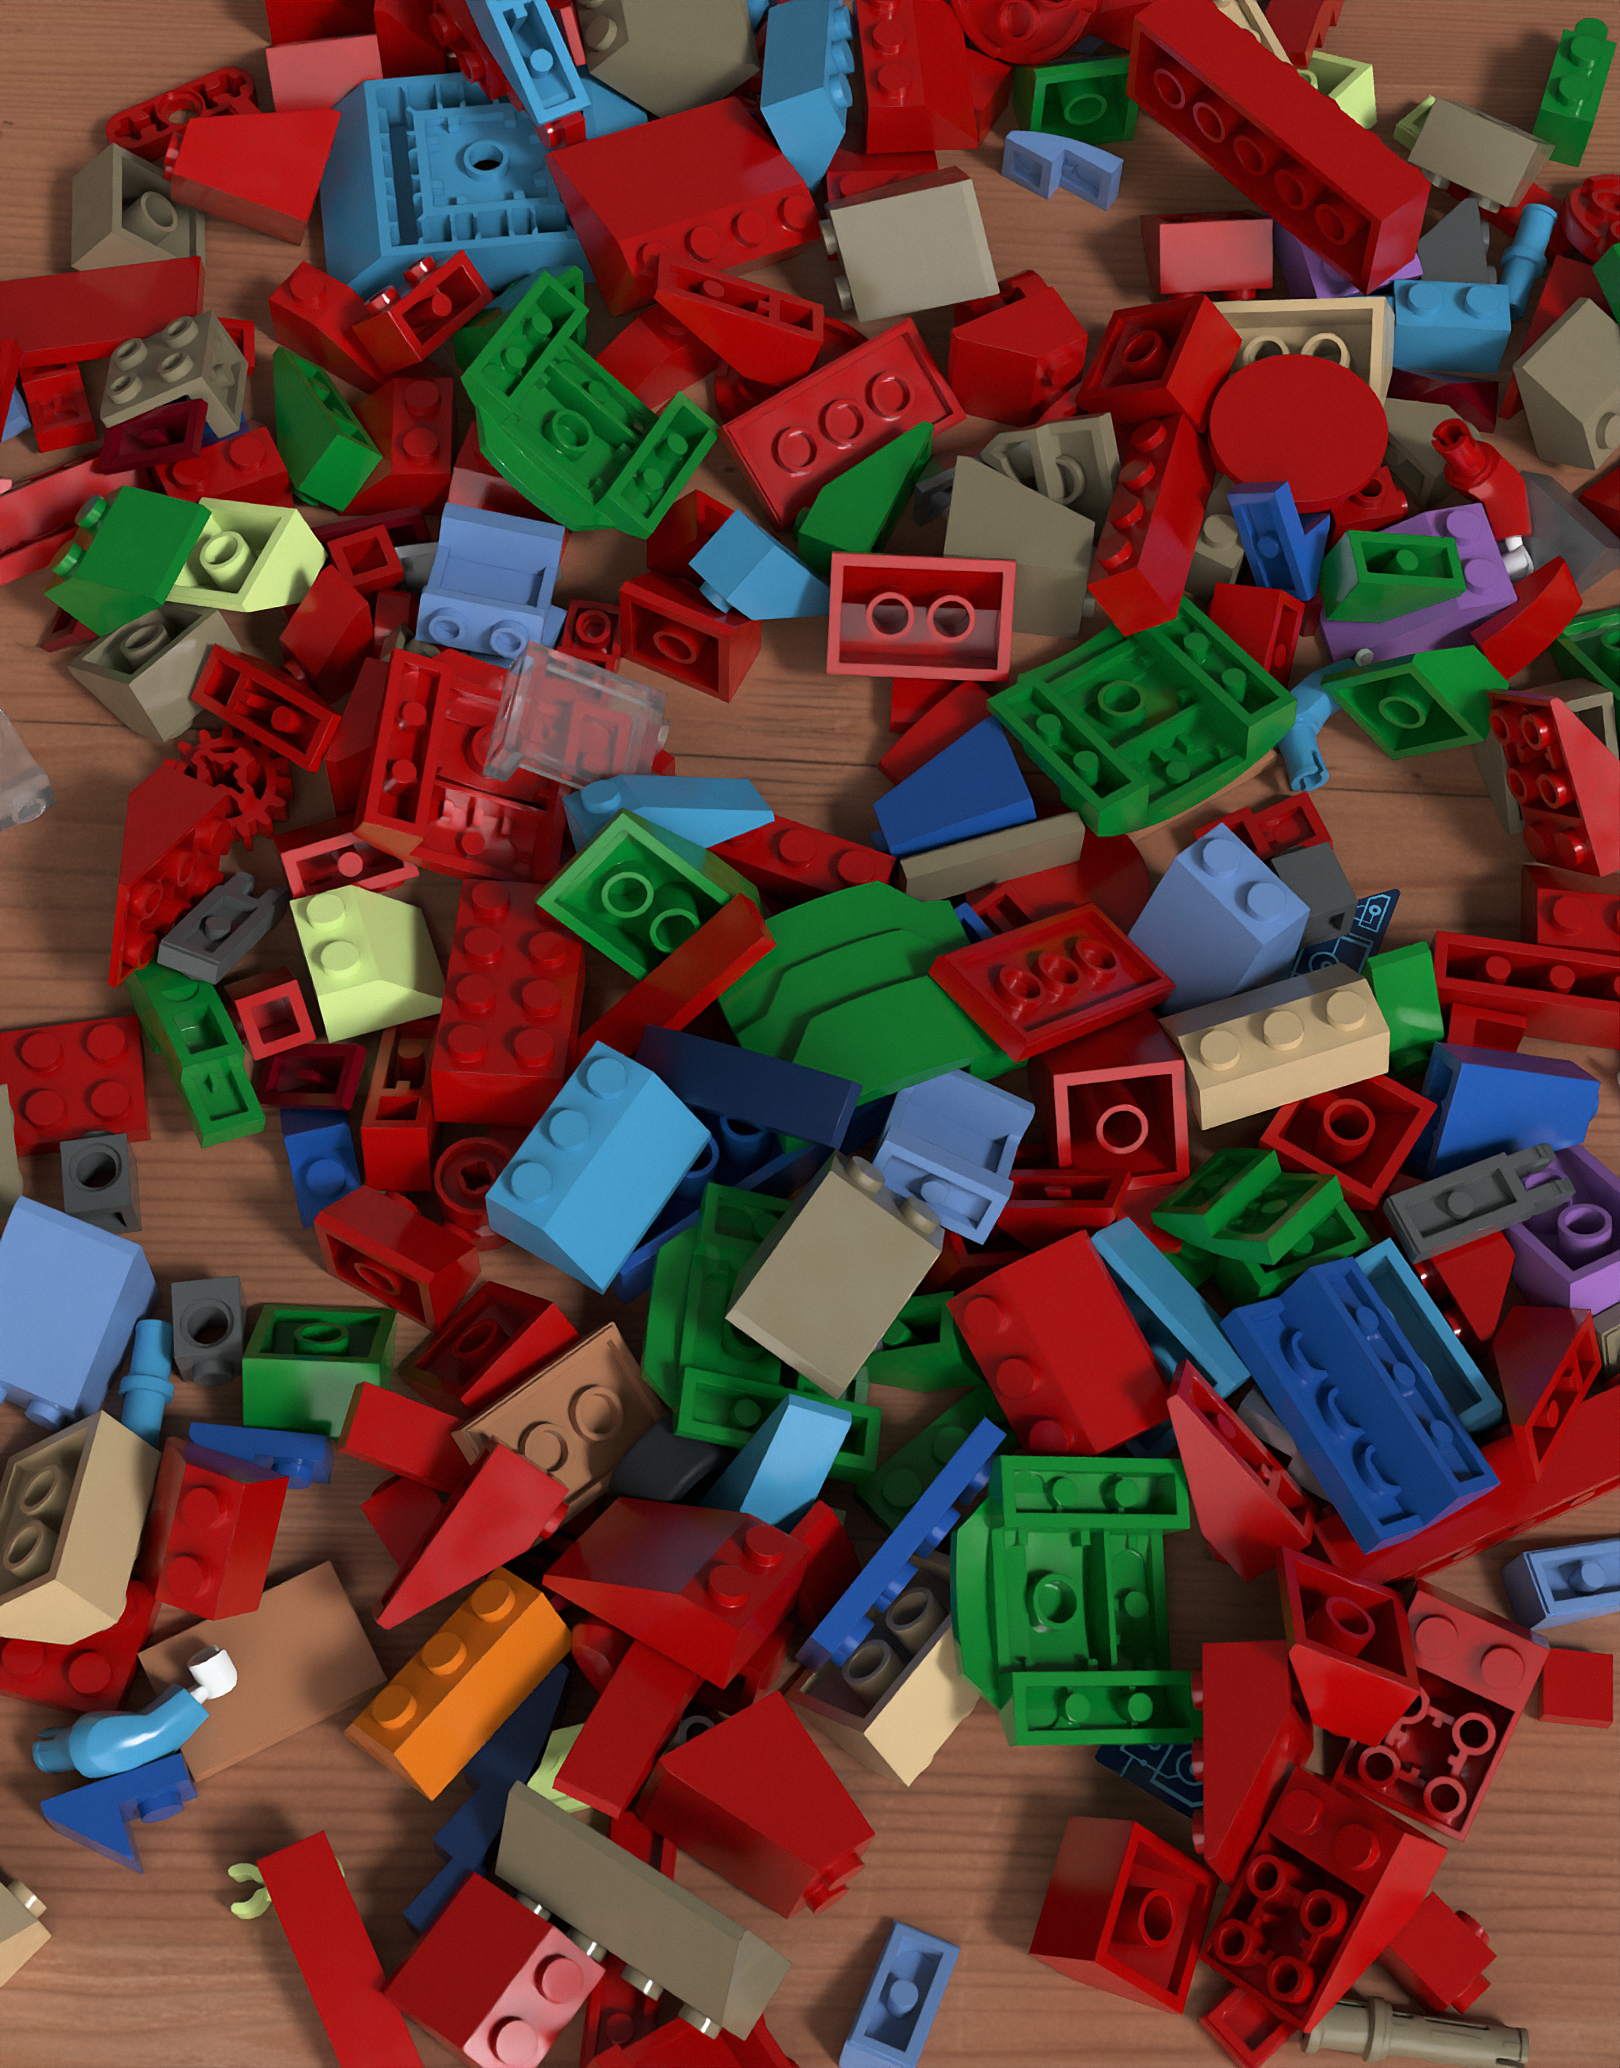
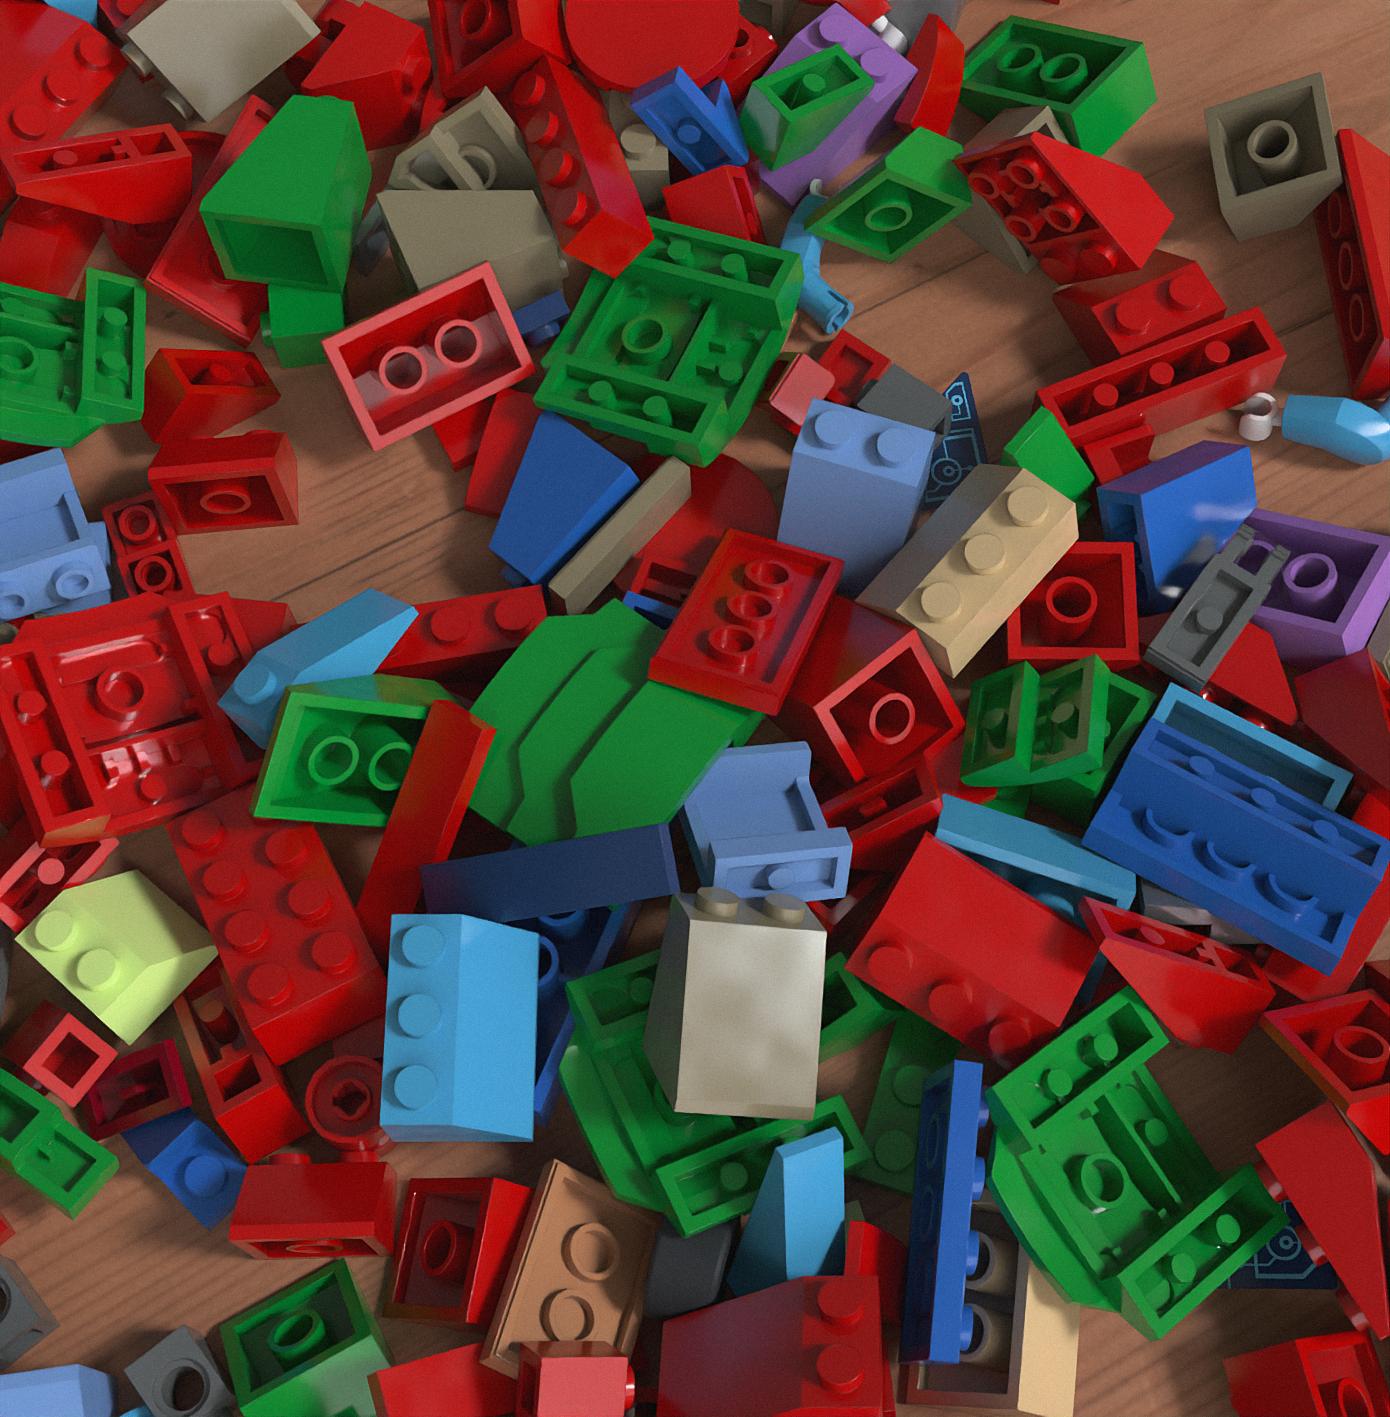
camera: 25 degrees left, 5 degrees up
(574, 721) = (182, 625): clear panel -> none
(758, 574) = (262, 396): dark azure slope -> none
(886, 423) = (293, 198): none -> green slope
(1039, 640) = (541, 319): none -> dark blue plate
(1232, 806) = (793, 385): none -> slope

